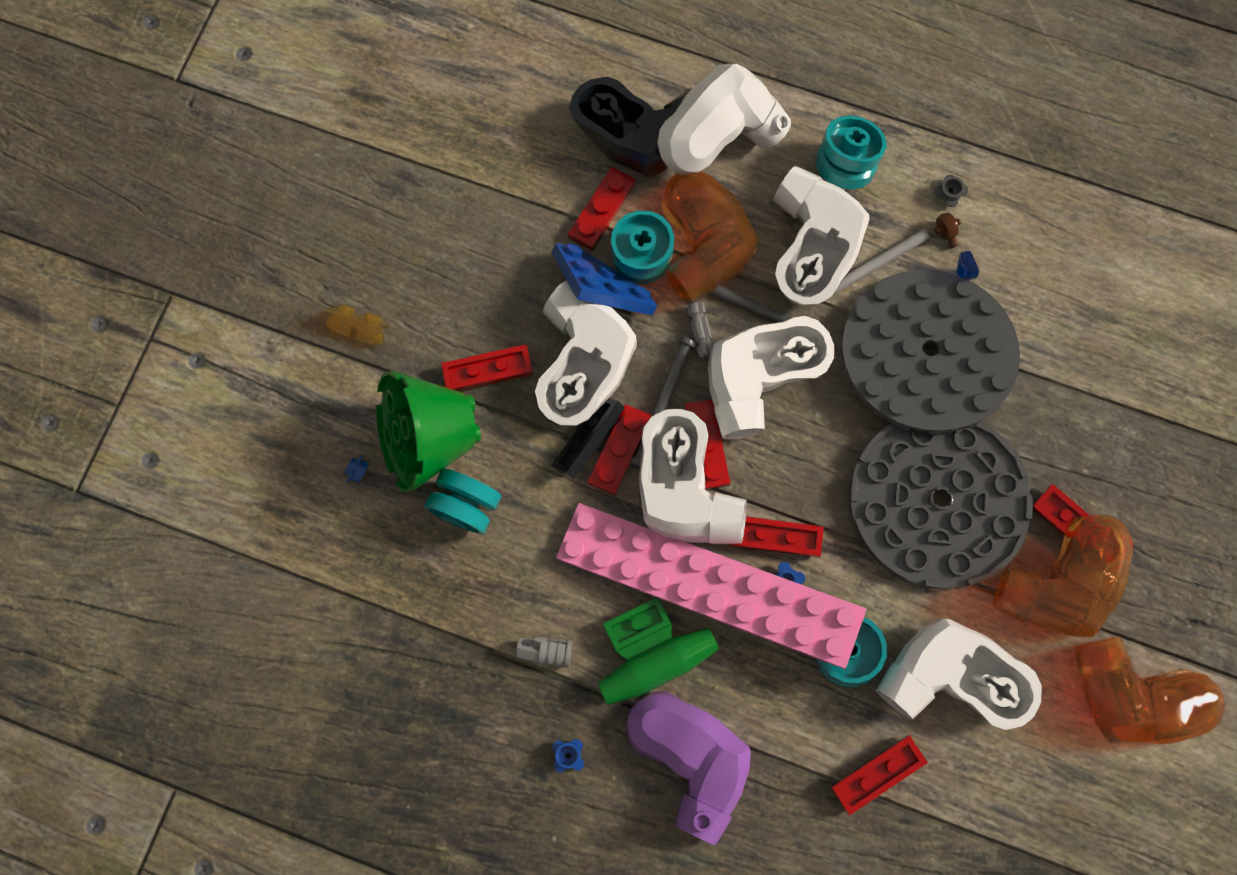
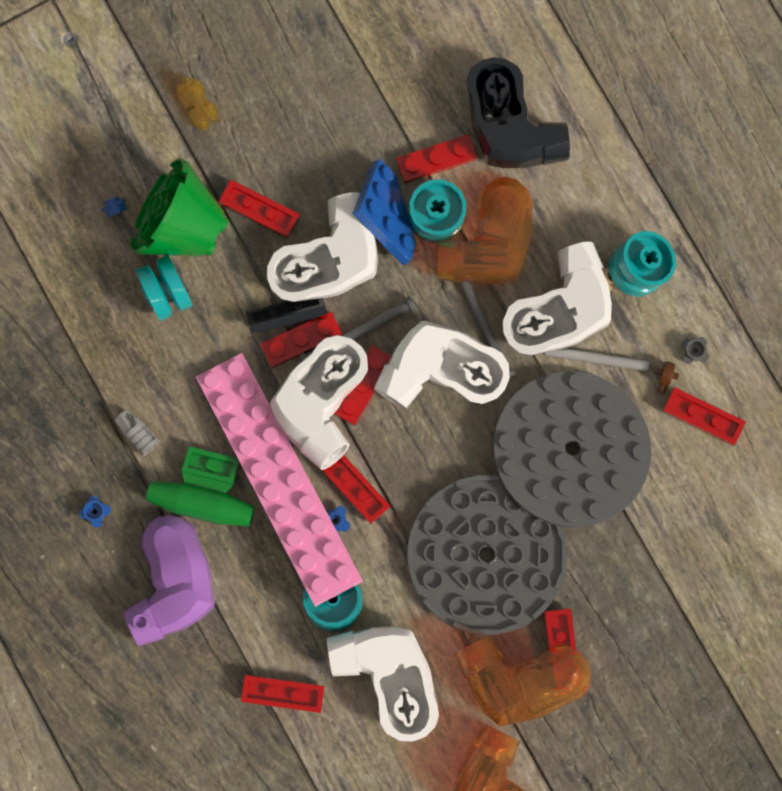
camera: 35 degrees right, 5 degrees up
(700, 329) = (429, 301): light grey axle -> none
(715, 113) = (563, 160): white piece -> none
(967, 266) = (651, 412): clear blue tile -> none
(1009, 236) = (704, 416): none -> red plate

